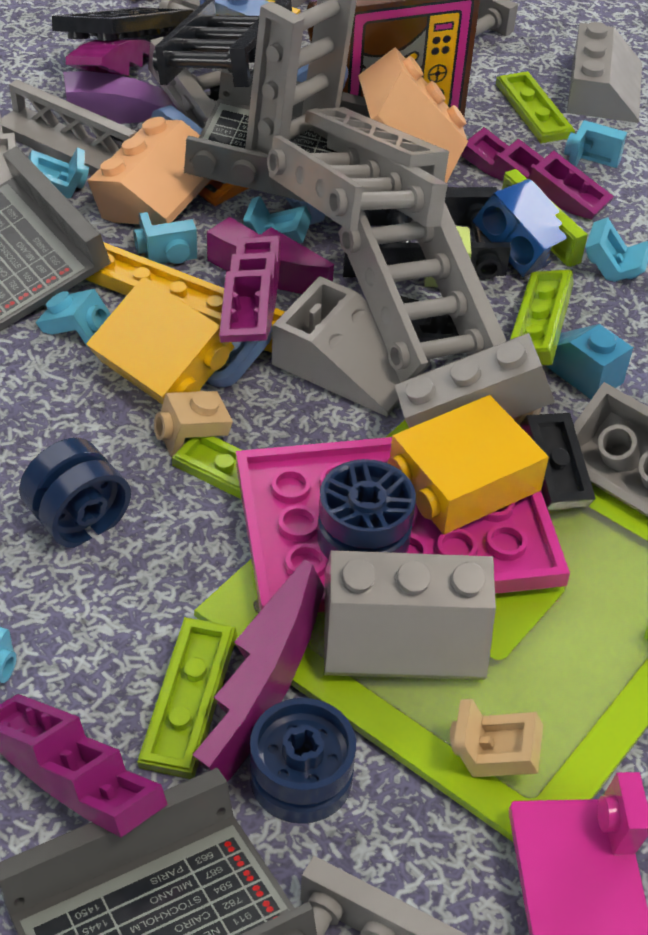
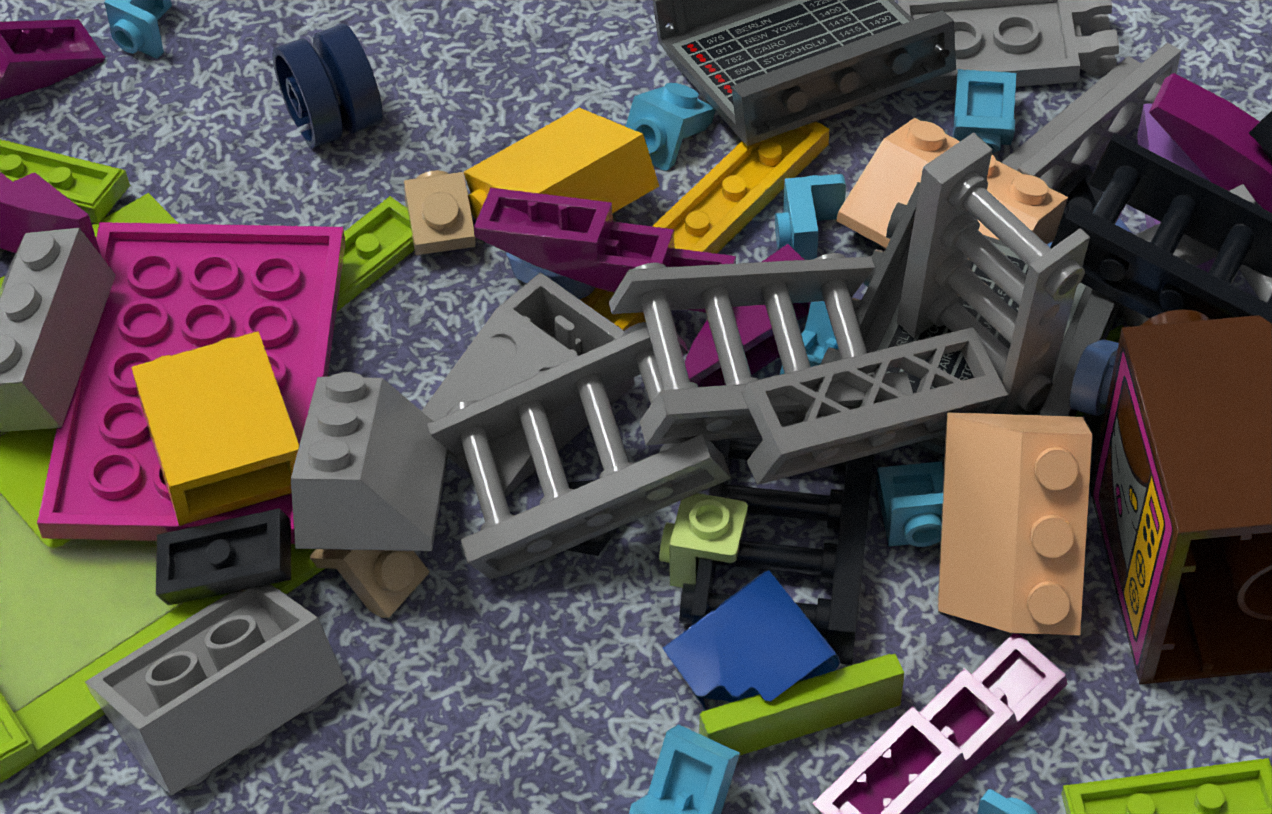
camera: 105 degrees right, 5 degrees up
(365, 508) = (157, 297): dark blue wheel -> none
(544, 311) = (540, 633): lime tile -> none
(591, 357) = (449, 676): dark azure slope -> none

